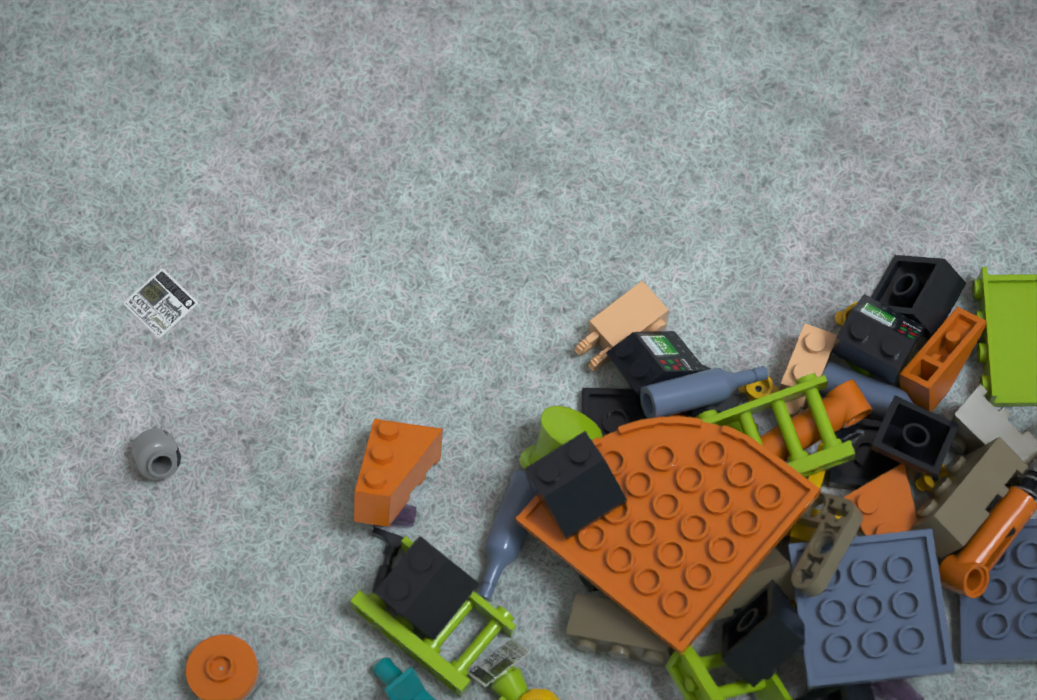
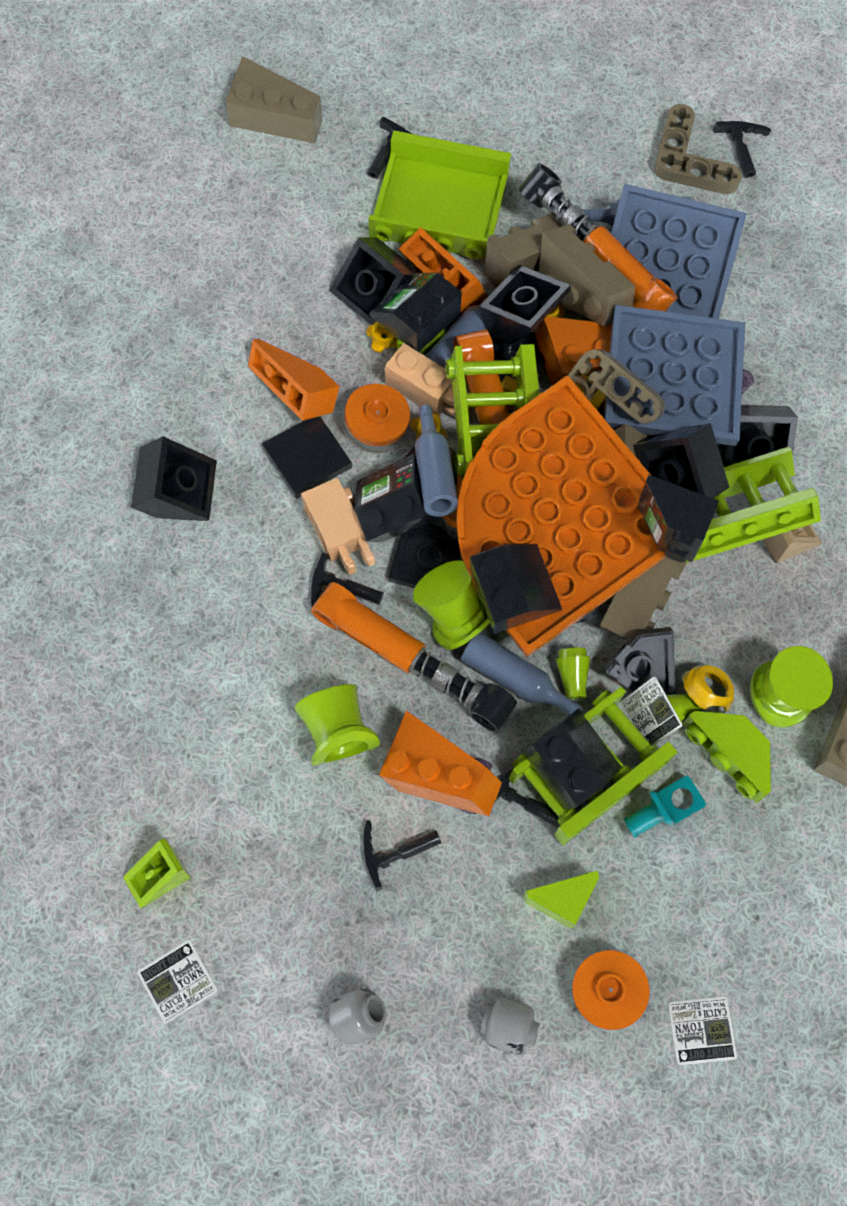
camera: 80 degrees left, 0 degrees up
(173, 588) = (510, 1026): none -> light grey head
(249, 259) = (156, 873): none -> lime slope
(297, 616) = (563, 899): none -> lime slope
(314, 465) = (403, 852): none -> black piece
(415, 370) = (336, 724): none -> lime hat
(527, 583) = (573, 670): none -> lime cone
(533, 354) = (341, 610): none -> piece
(552, 647) = (643, 657): none -> black plate
(567, 326) = (357, 589): none -> black piece
(628, 166) = (173, 481): none -> black slope
(671, 616) = (676, 517): none -> black slope
(695, 281) = (307, 455): none -> black tile
(752, 333) = (376, 418): none -> orange piece
(769, 247) = (295, 381): none -> orange slope

